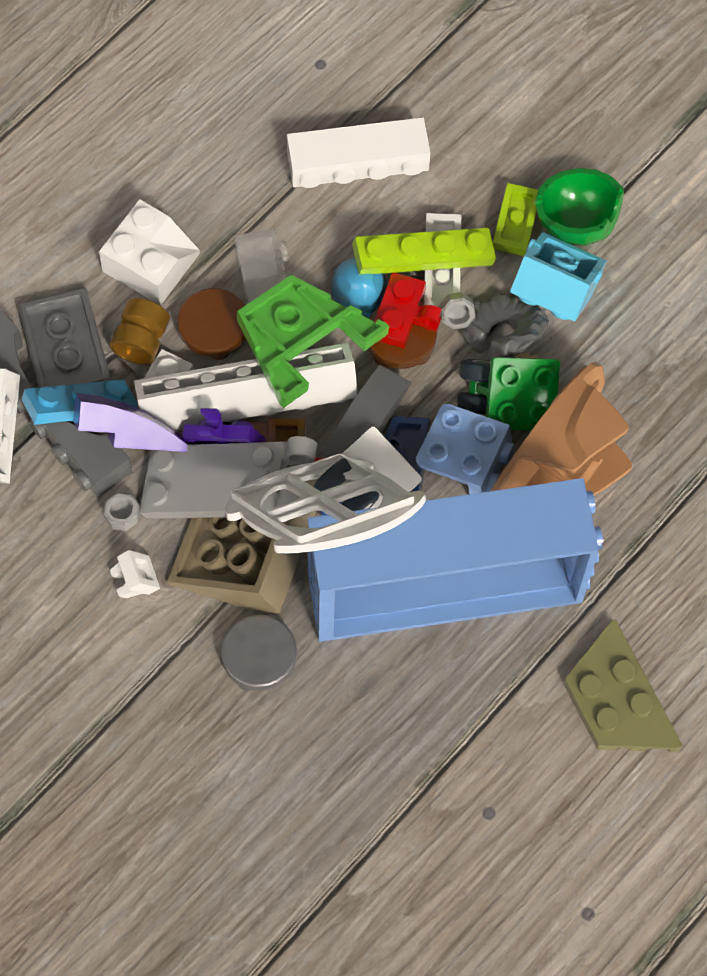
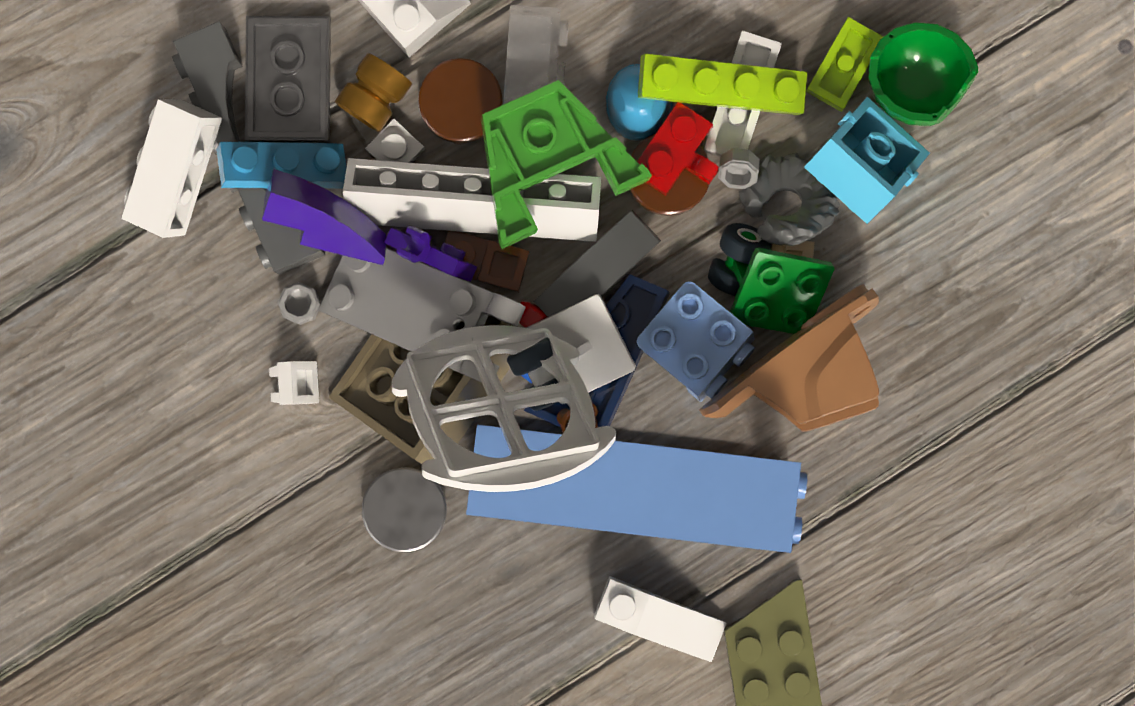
camera: 20 degrees right, 20 degrees up
(504, 683) = (659, 619): none -> white slope

